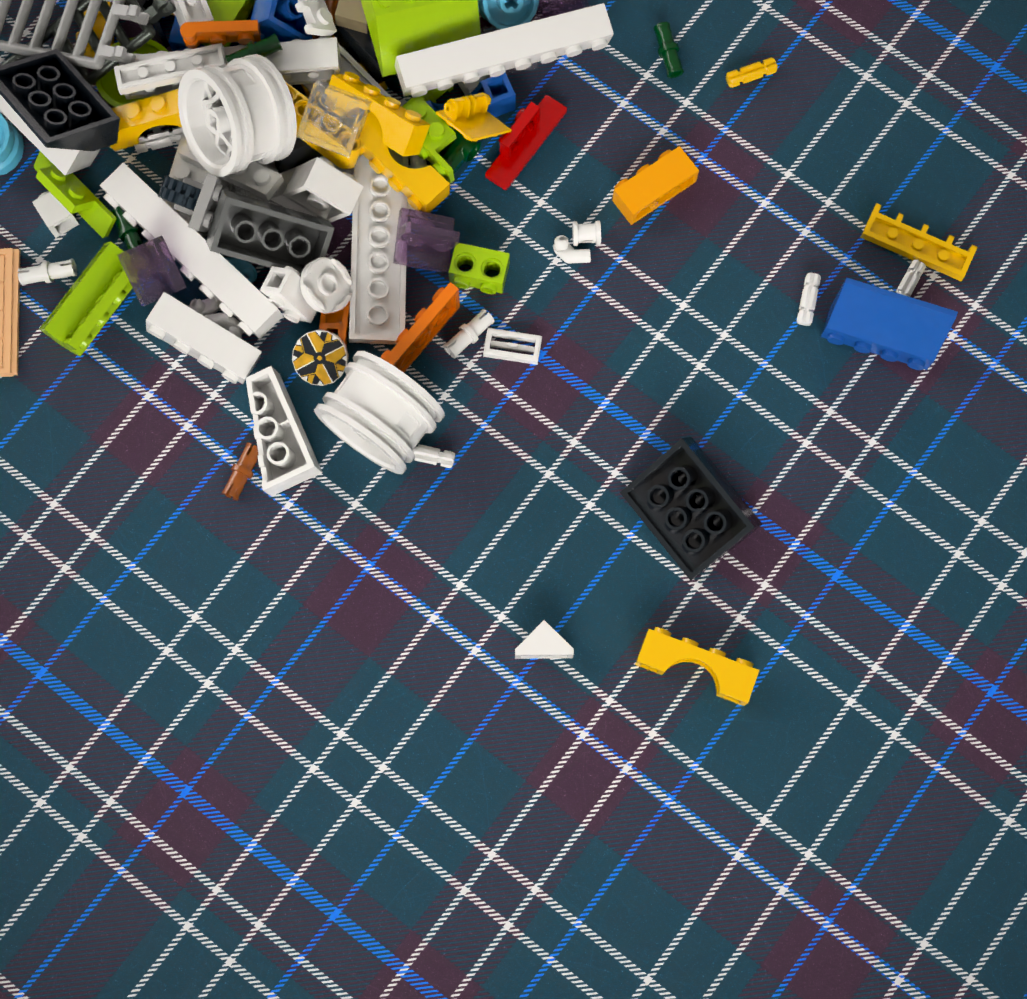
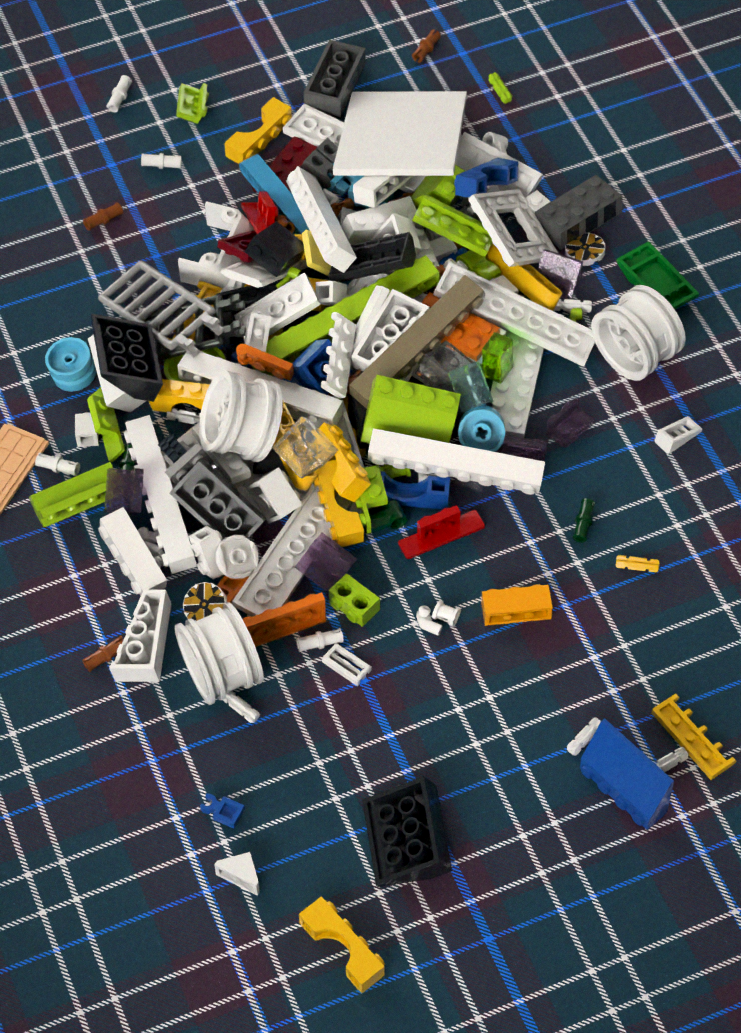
camera: 30 degrees right, 20 degrees down
(166, 69) = (208, 367): white tile -> none
(244, 267) = (190, 522): medium azure arm -> none
(263, 47) = (286, 384): dark green pin -> none
(471, 117) = (406, 494): yellow hinge -> none
(486, 584) = (225, 812): none -> blue plate

